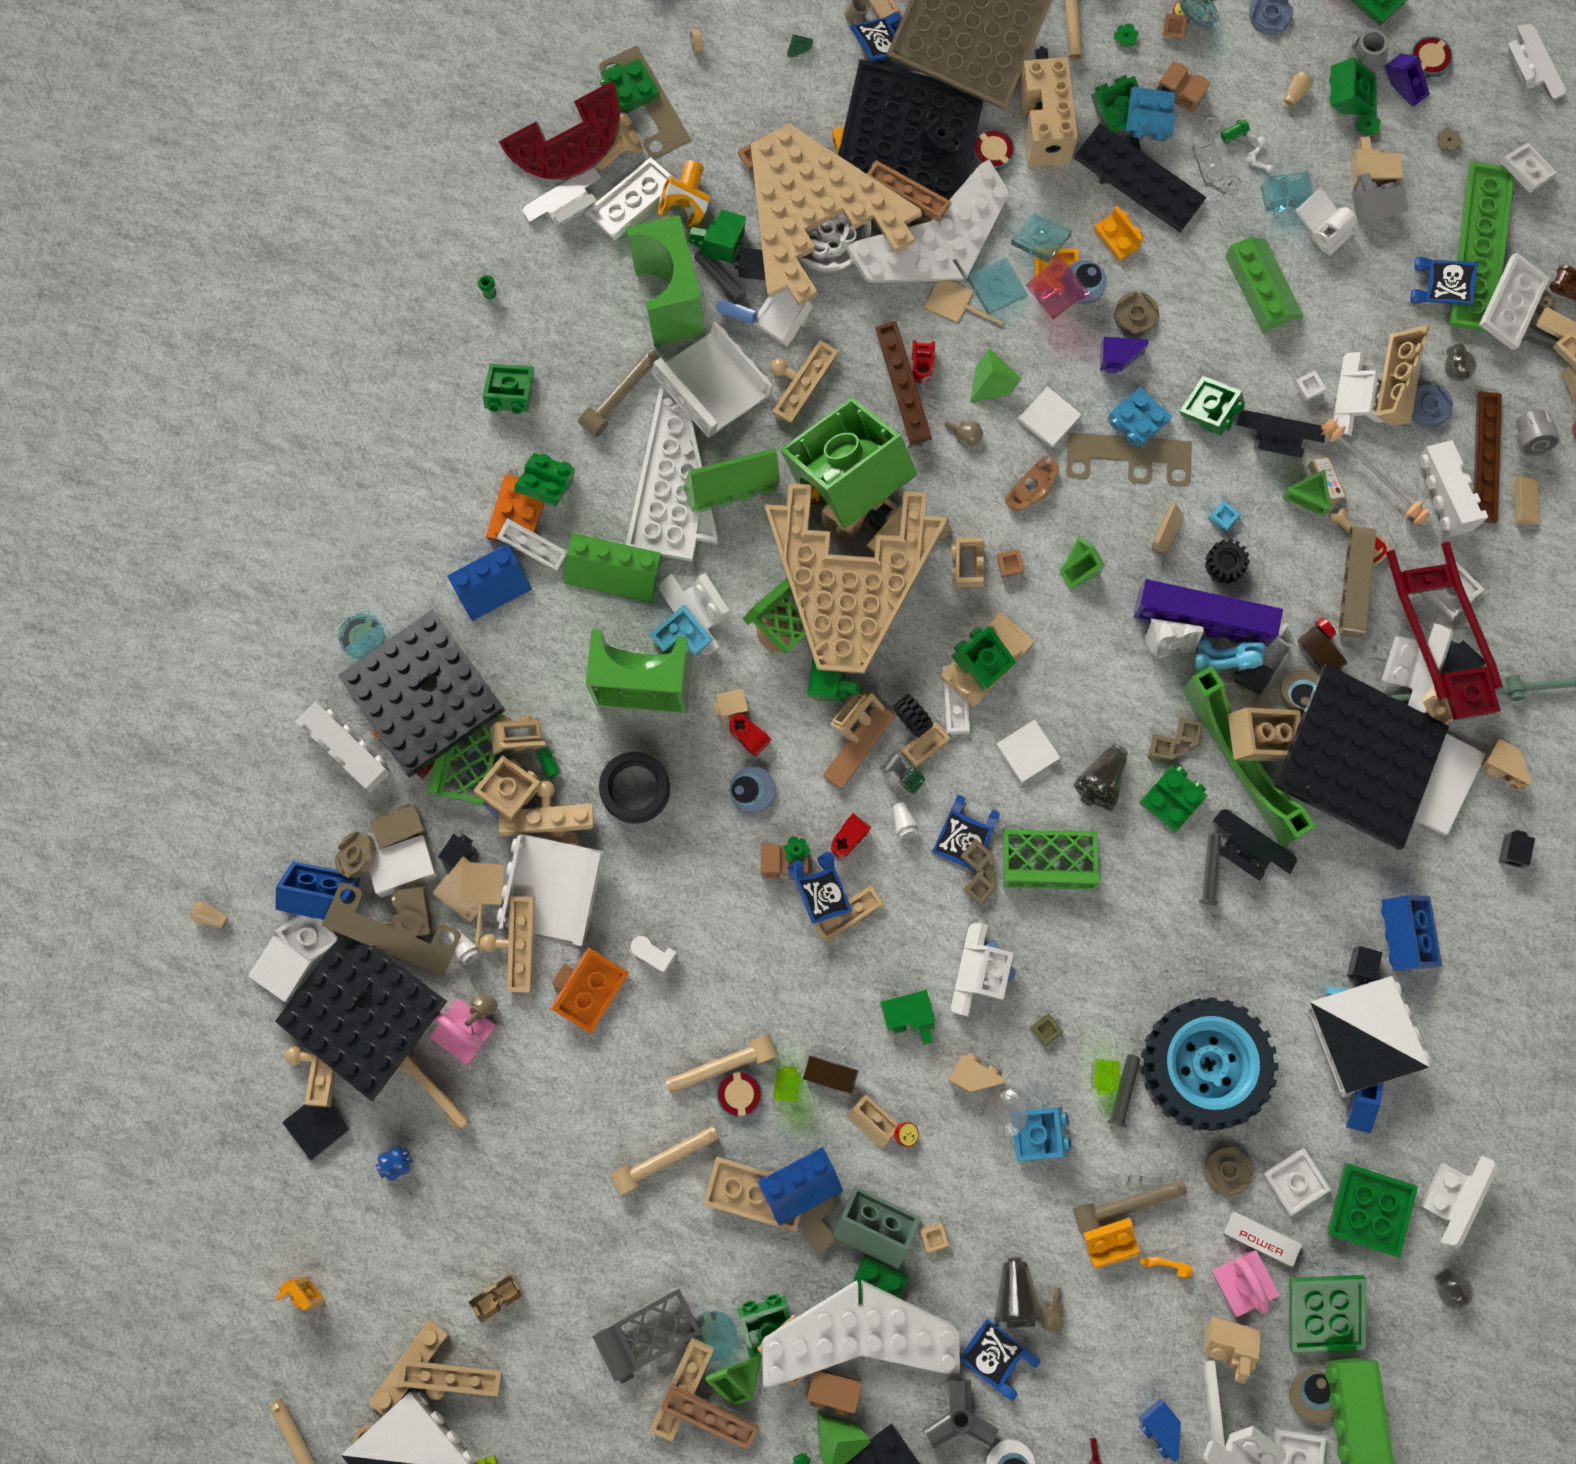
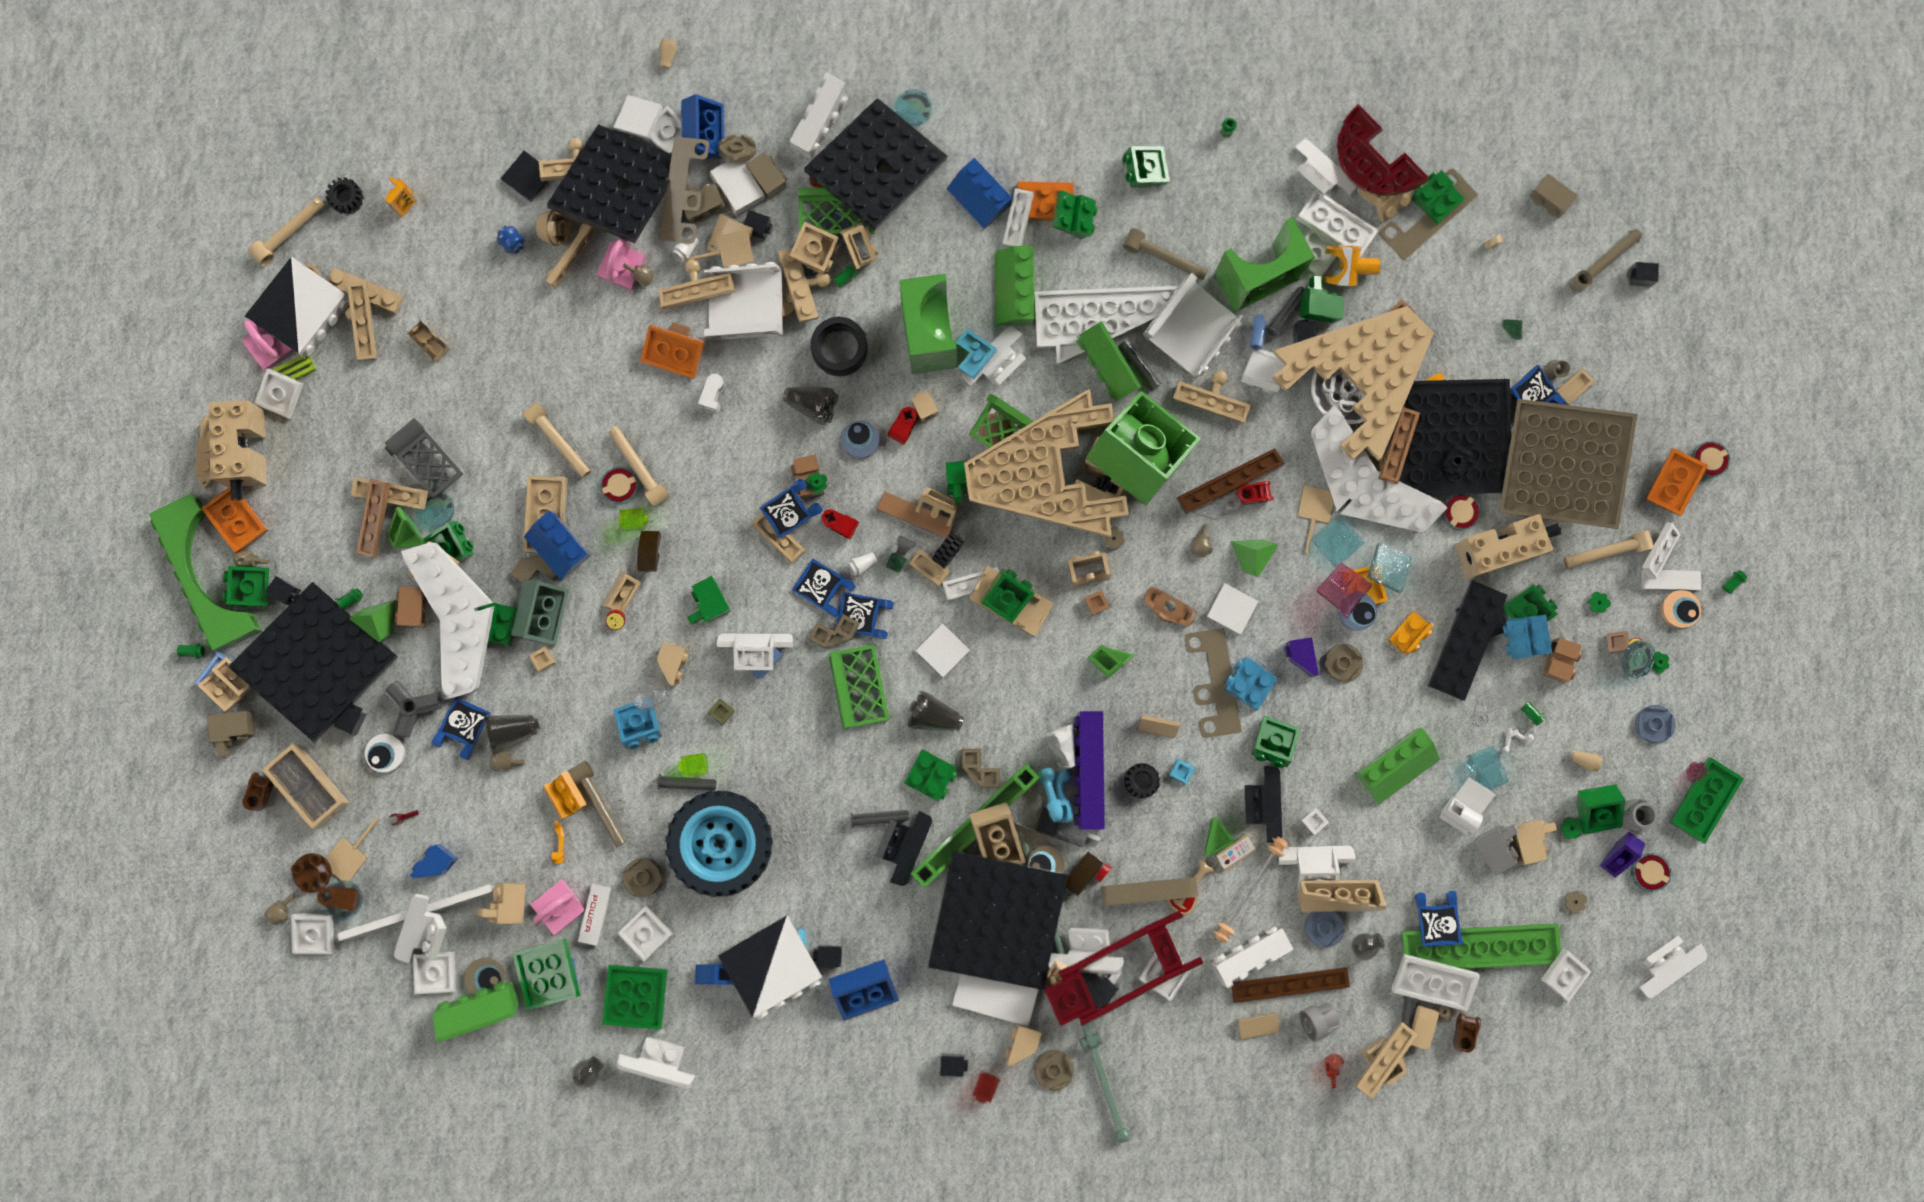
camera: 70 degrees right, 5 degrees up
(262, 1364) = (336, 188): none -> black tyre
(394, 1104) = (553, 227): none -> tan cone
(694, 835) = (812, 402): none -> clear smoke cone
(743, 449) = (1135, 358): none -> dark grey pin
(918, 877) = (820, 584): none -> flag
(1540, 737) = (1054, 1070): none -> dark tan tile
(1548, 817) = (985, 1087): none -> clear red brick

